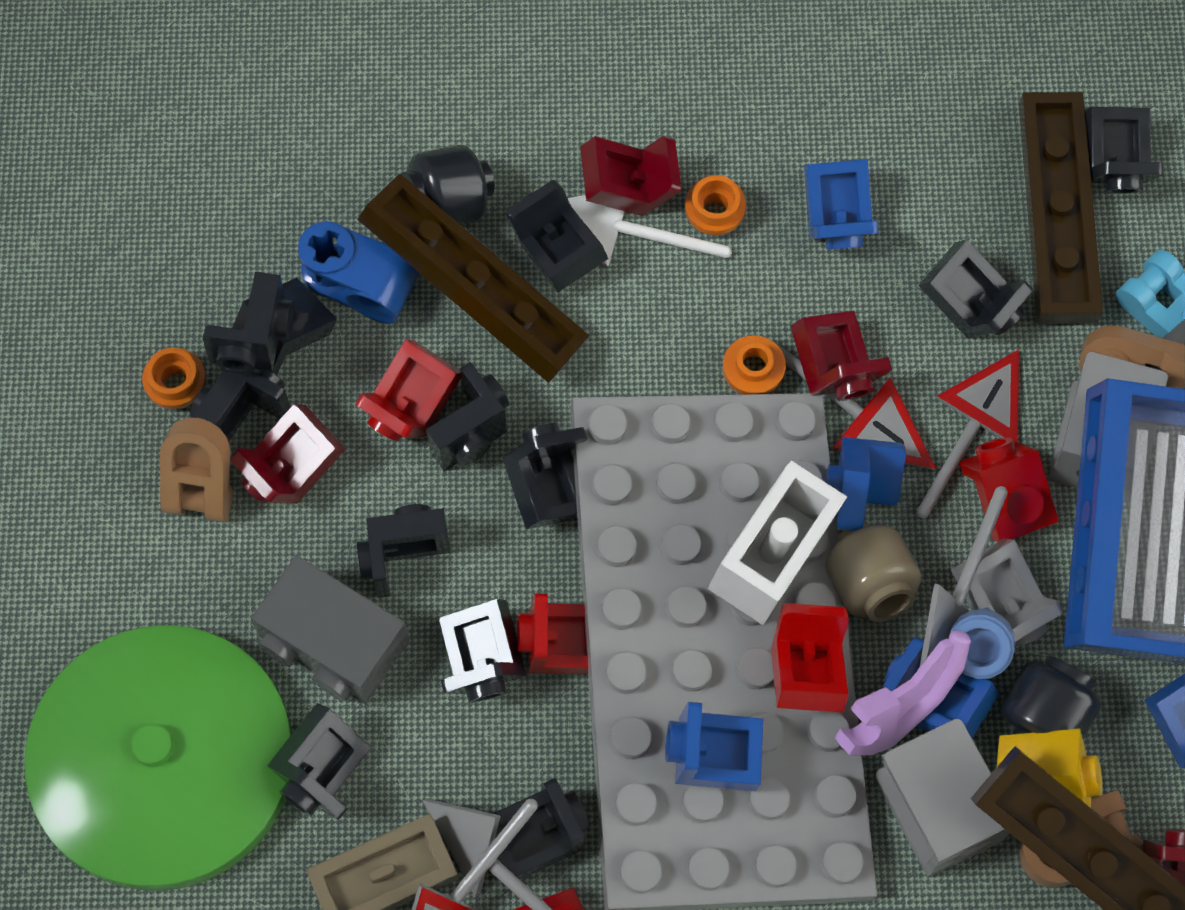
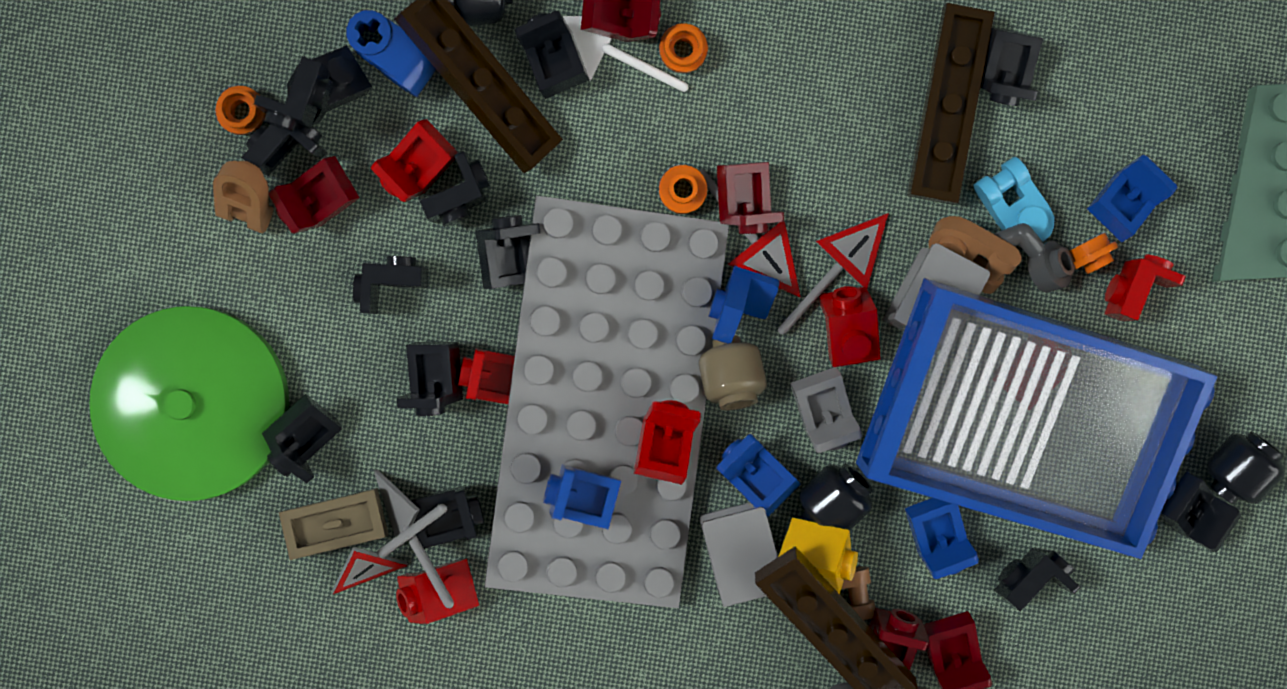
camera: 15 degrees right, 20 degrees up
(329, 631) = (323, 338): dark grey brick -> none
(776, 542) = (661, 352): white brick -> none
(839, 202) = (779, 69): blue bracket -> none
(892, 714) = (714, 490): lavender piece -> none
(947, 608) = (779, 421): light grey piece -> none
(974, 292) = (865, 165): black bracket -> none
(990, 644) = (796, 449): medium blue tile -> none

